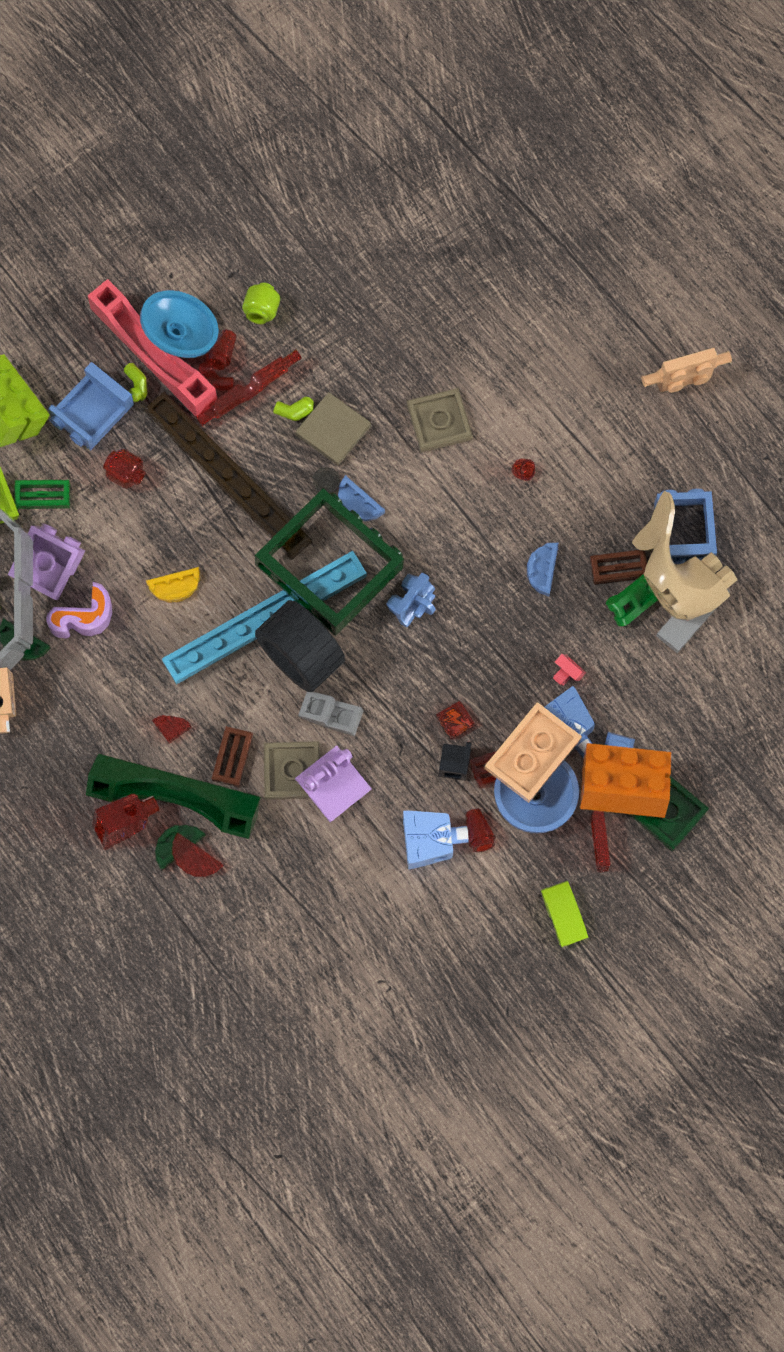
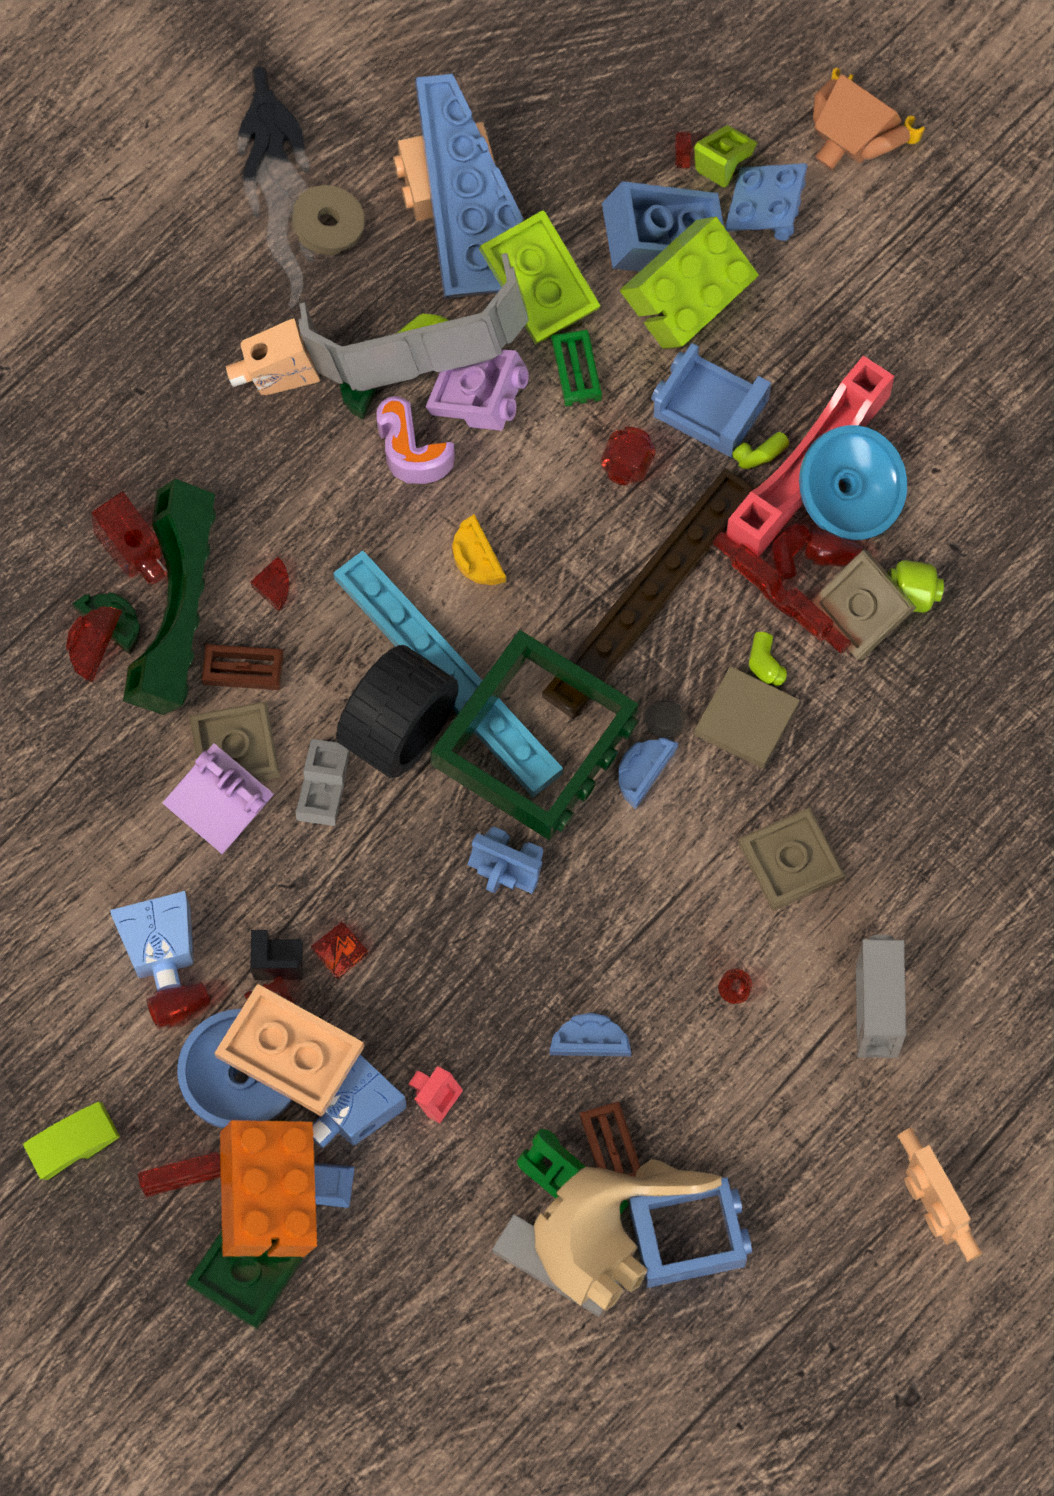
camera: 85 degrees right, 5 degrees down
(269, 335) = (864, 604): none -> dark tan tile
(551, 378) = (880, 997): none -> light grey window

